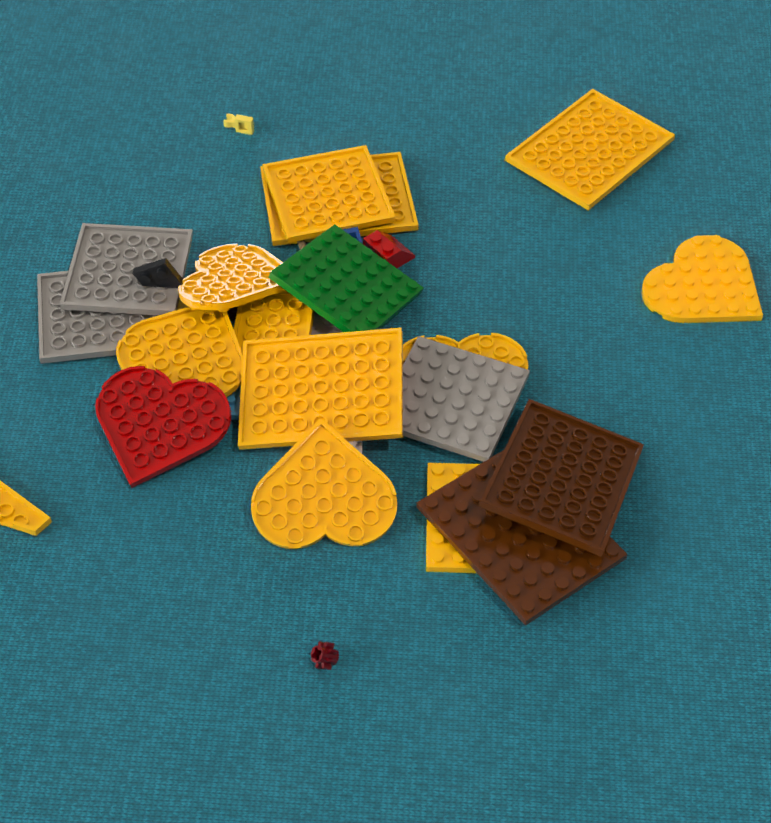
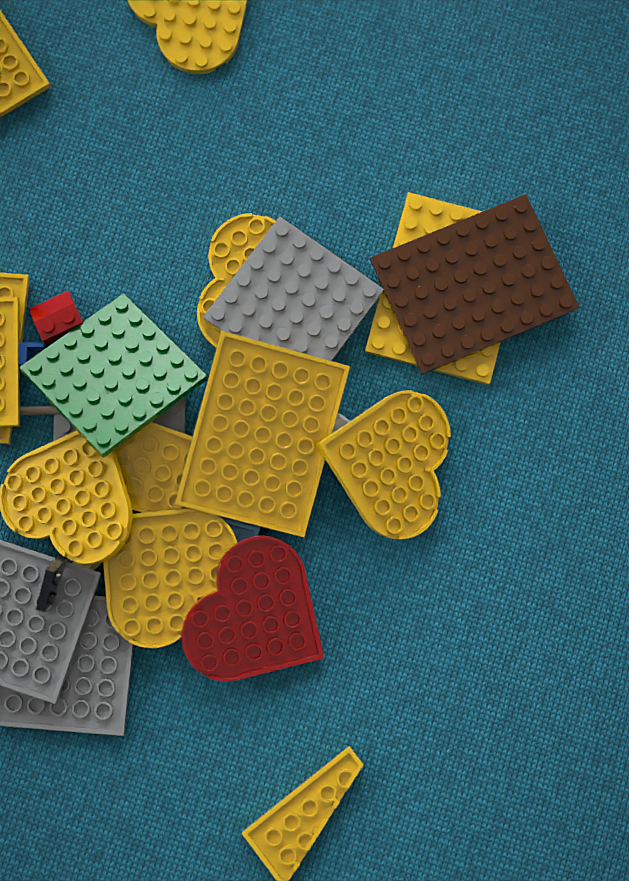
camera: 80 degrees left, 30 degrees up
(324, 655) = (572, 501): dark red gear -> none
(562, 477) = (429, 224): reddish brown plate -> none

